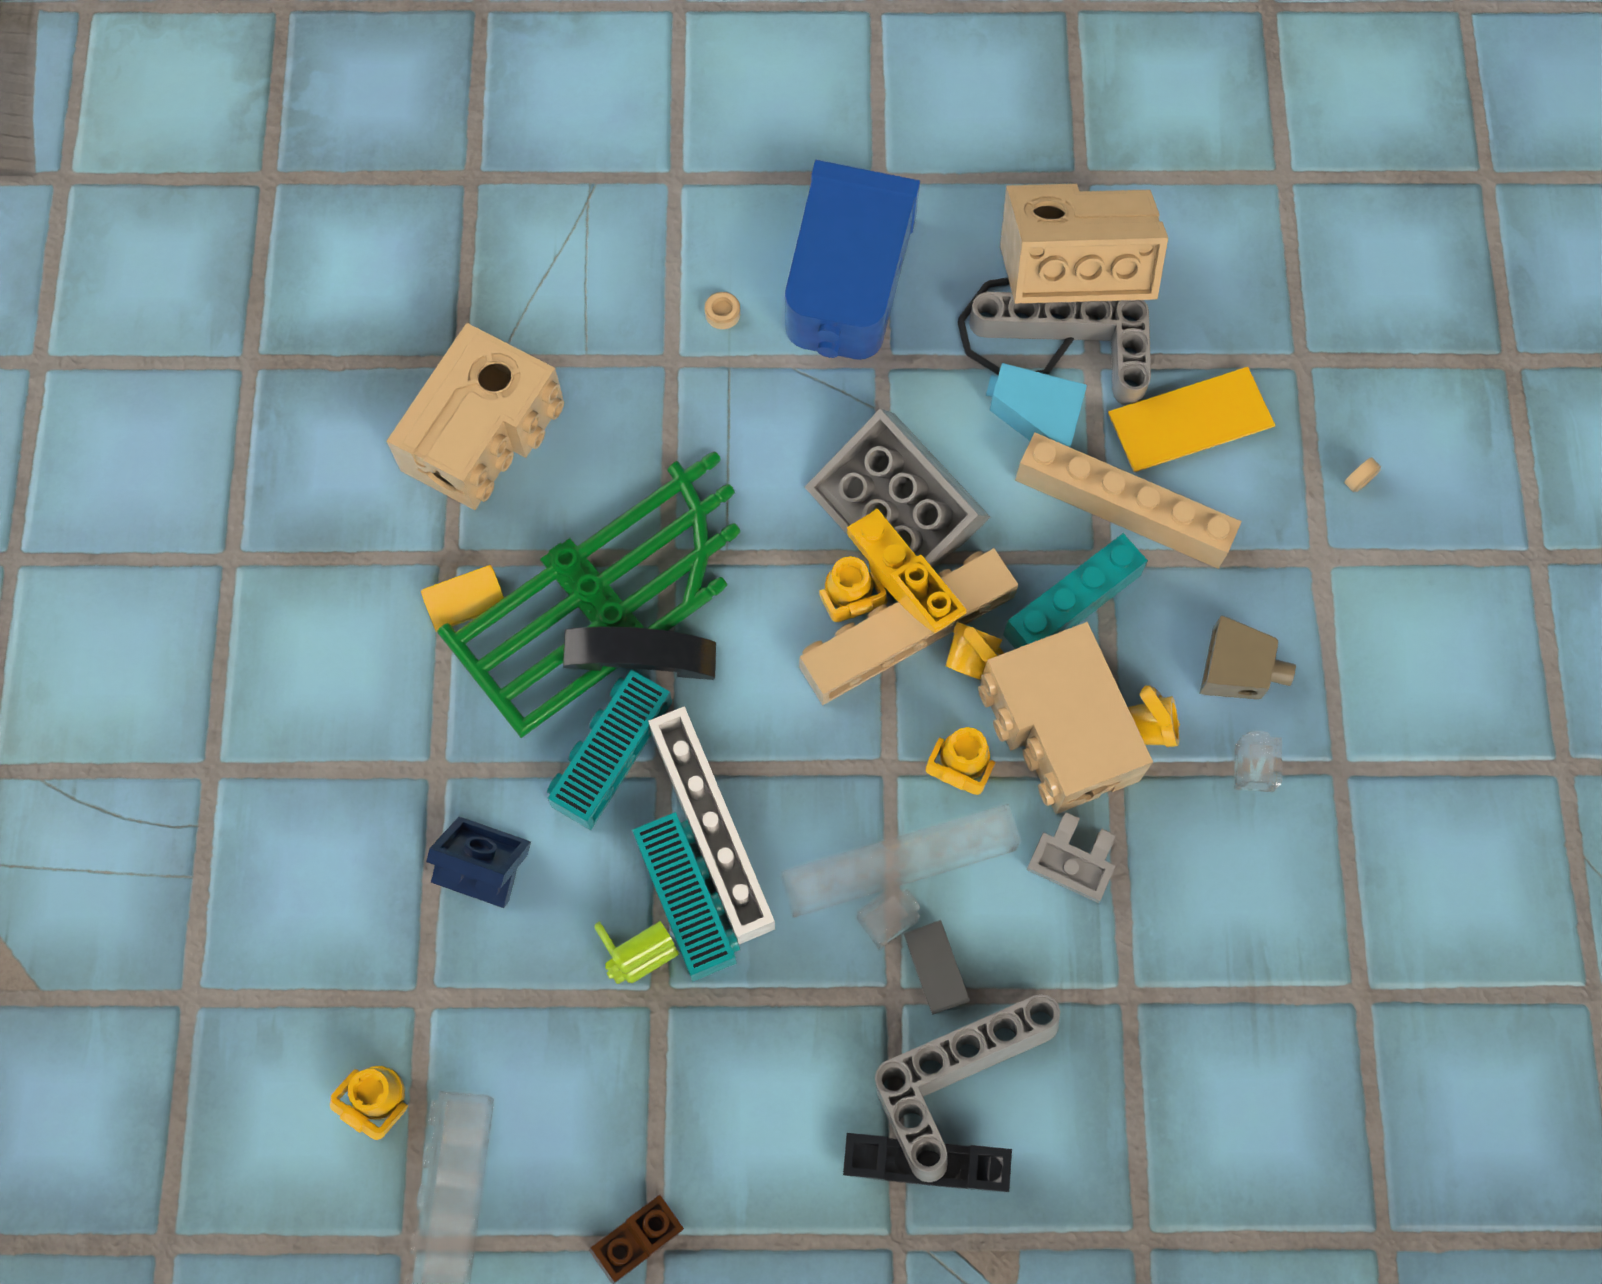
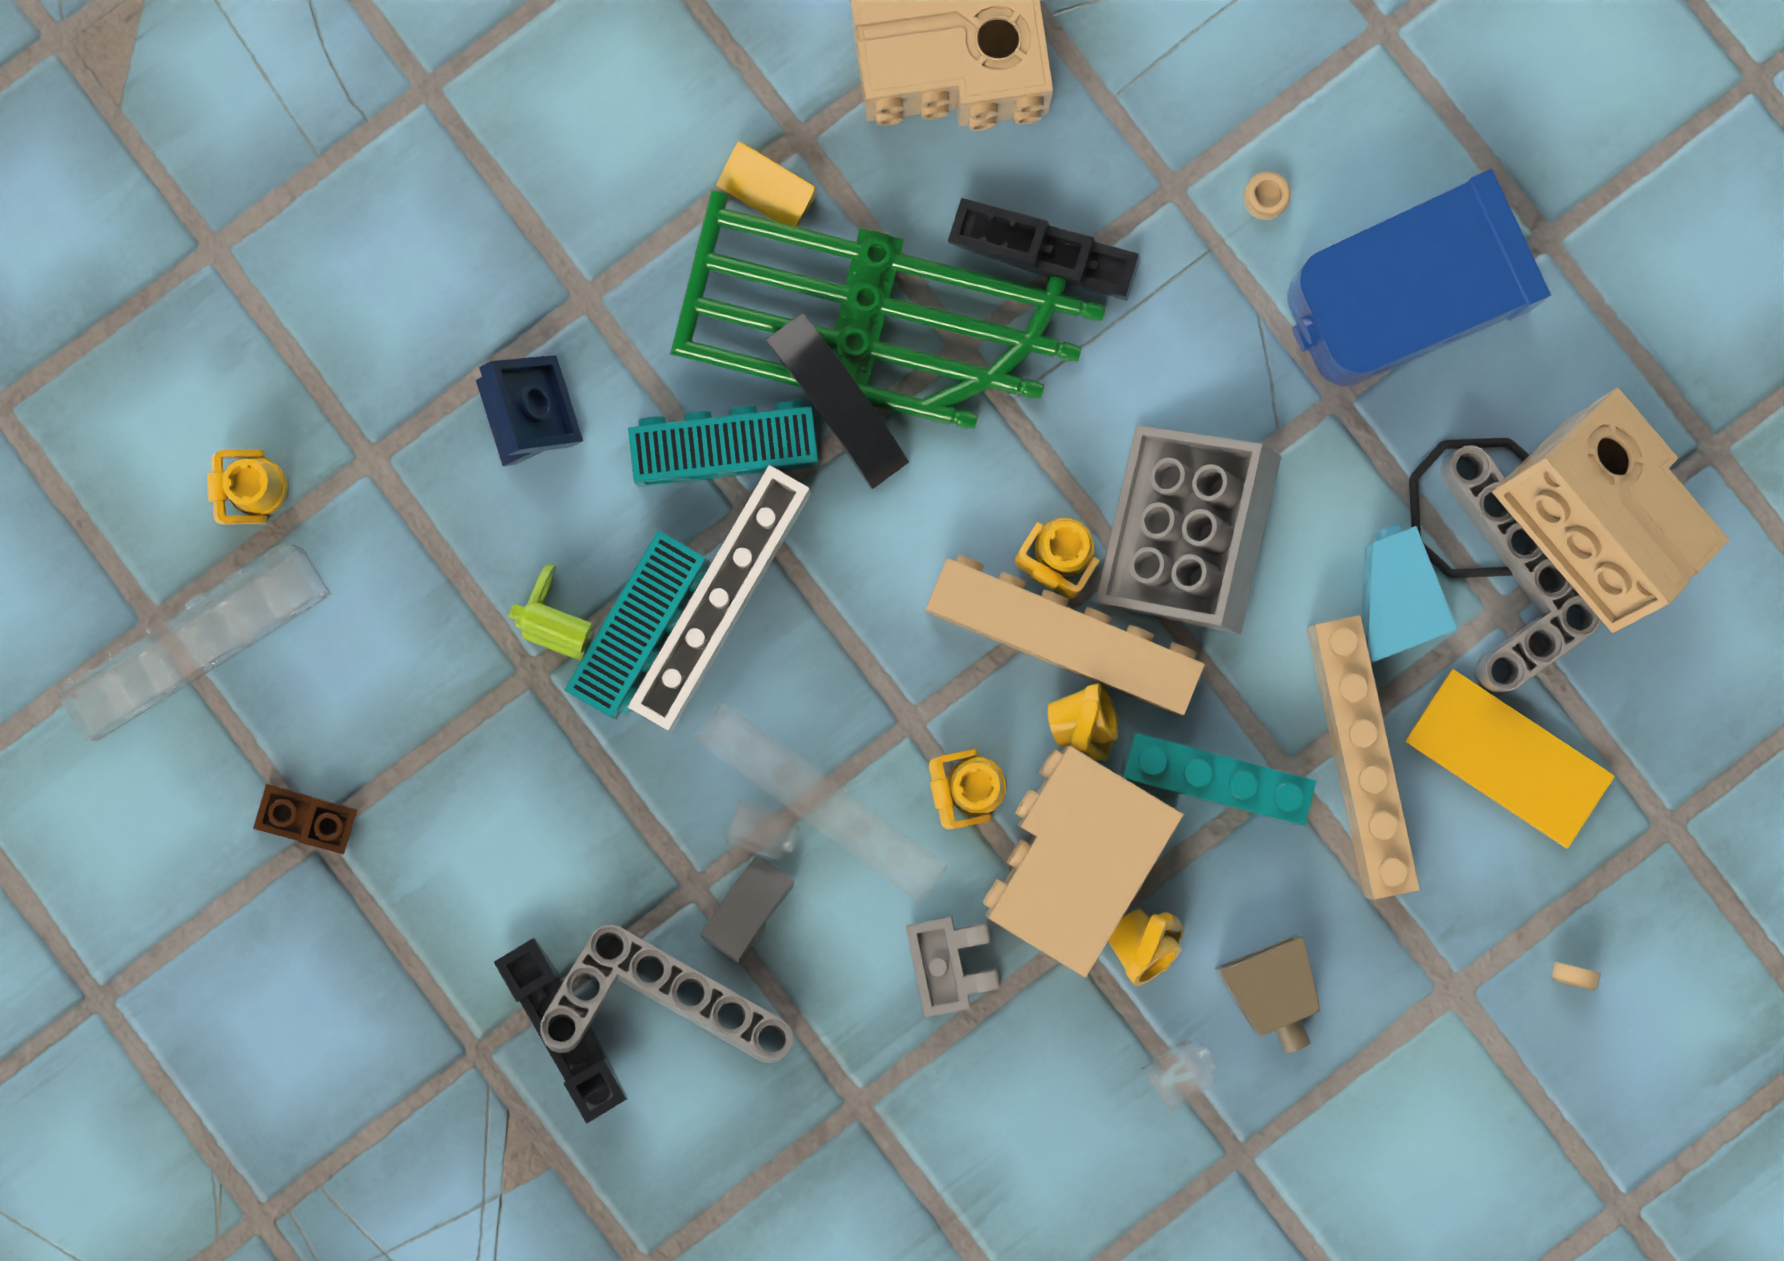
camera: 55 degrees right, 15 degrees up
(647, 461) = (1044, 249): none -> black slope
(904, 574) = (1106, 597): yellow slope -> none

